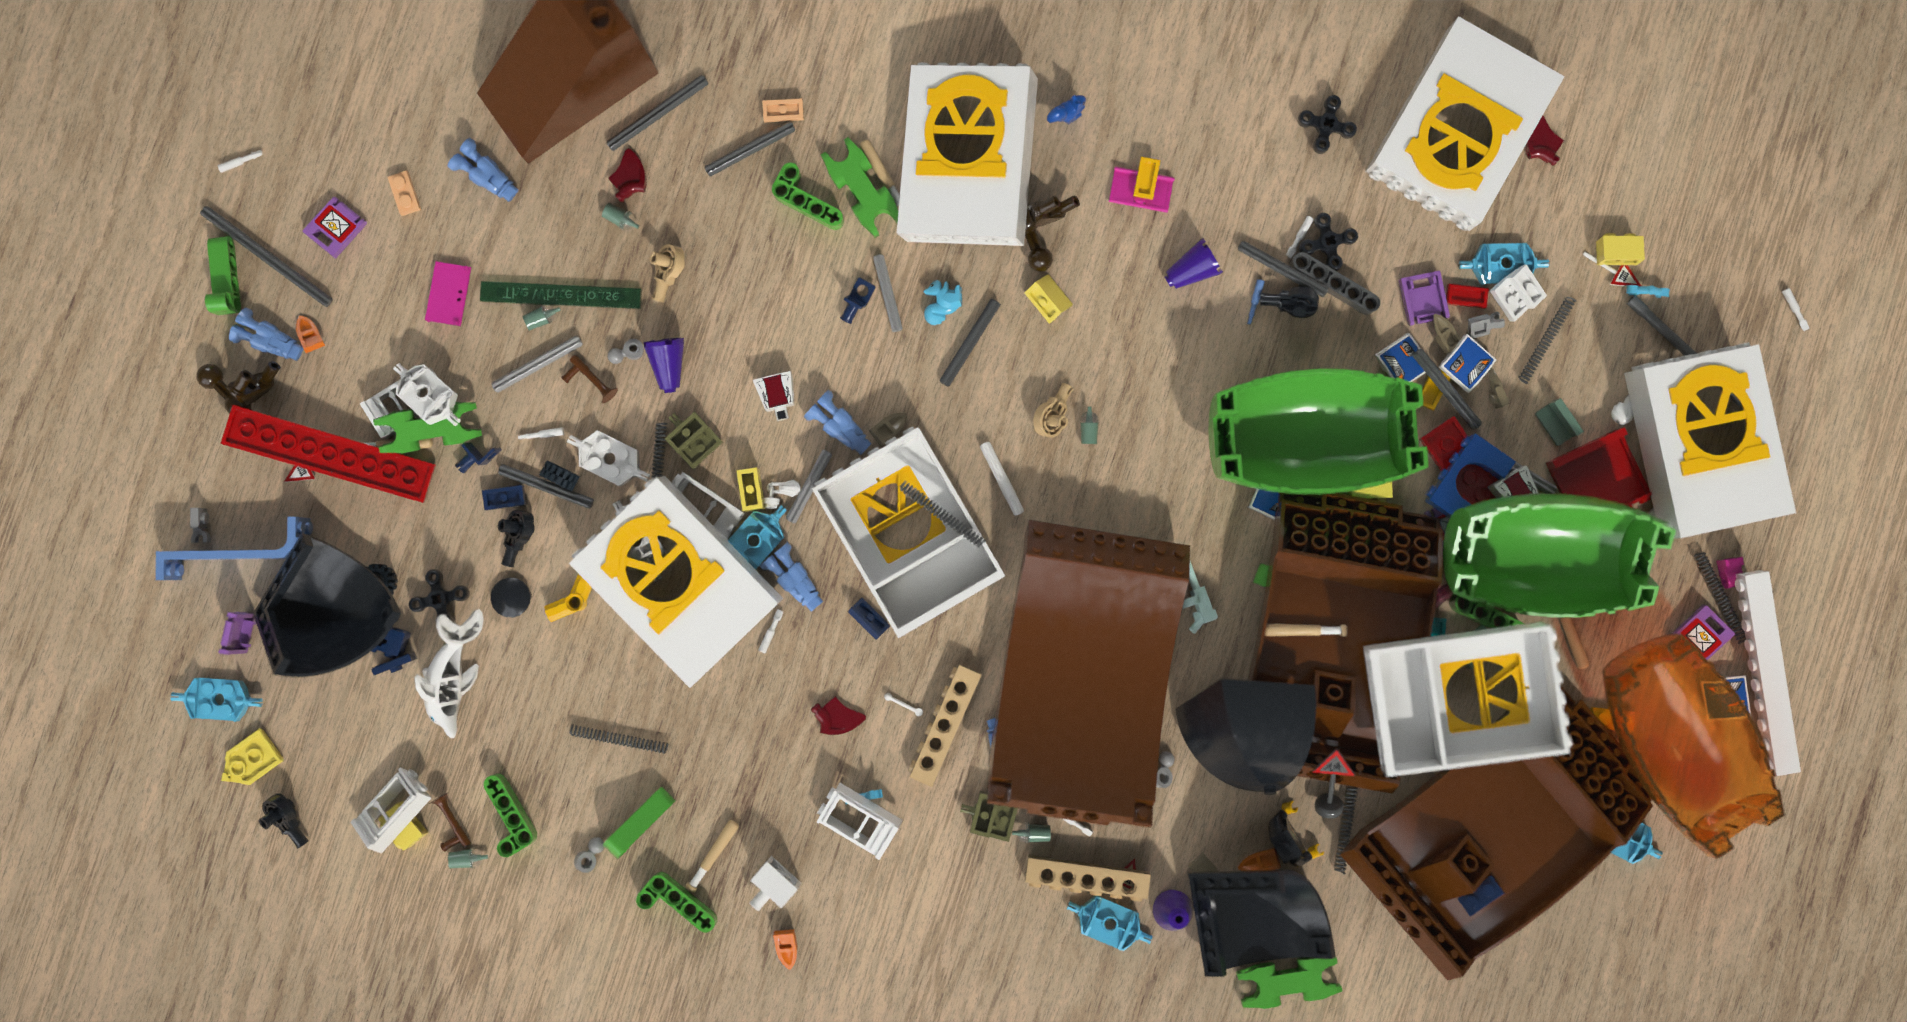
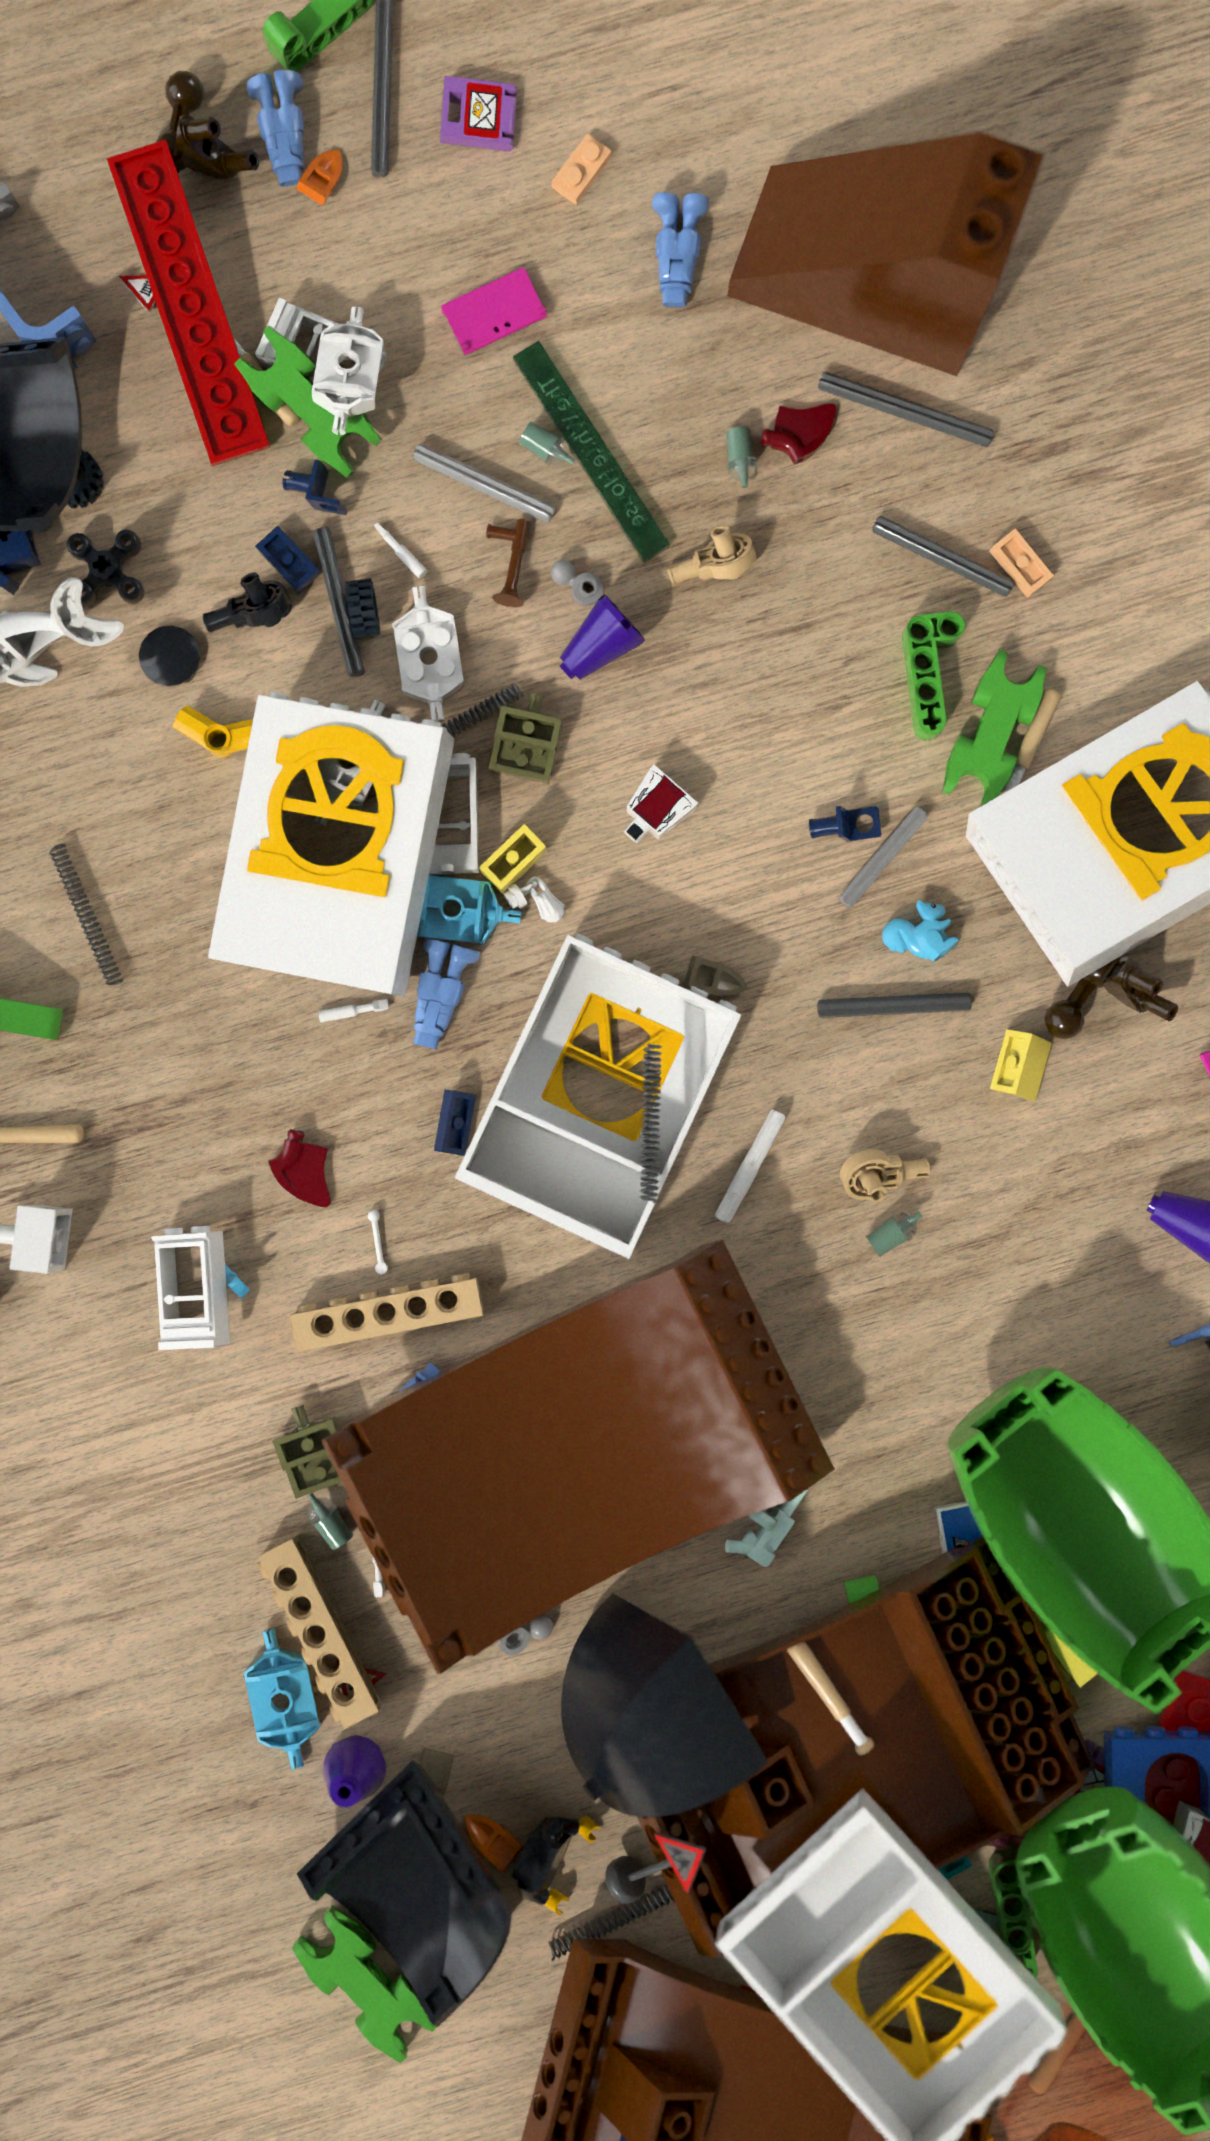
camera: 55 degrees right, 0 degrees up
(806, 490) = (560, 930): light grey axle -> none
(840, 426) = (673, 915): medium blue piece -> none

